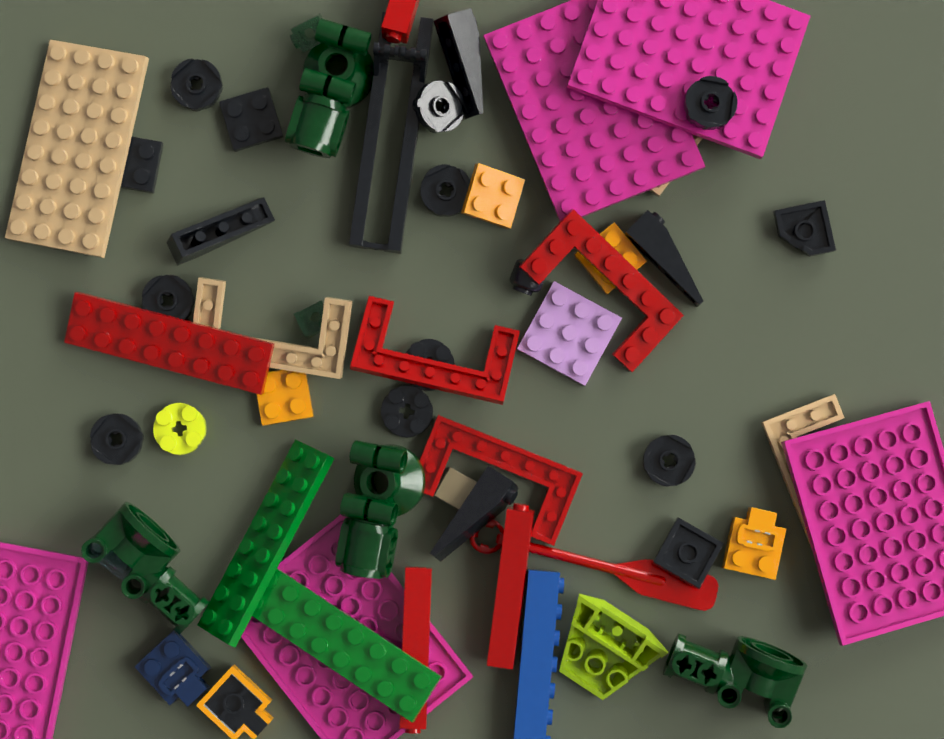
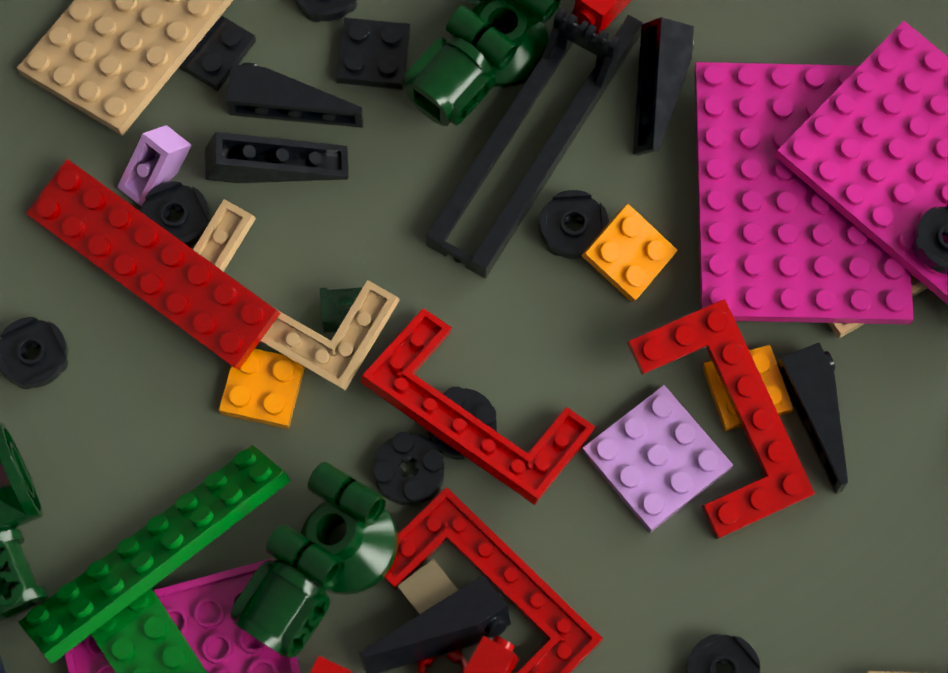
camera: 20 degrees right, 15 degrees down
(136, 269) = (153, 162): none -> lavender slope
(191, 438) = (126, 389): neon yellow plate -> none
(194, 183) = (271, 95): none -> black slope
(426, 109) = (590, 126): plate -> none
(522, 281) = (625, 369): black head -> none

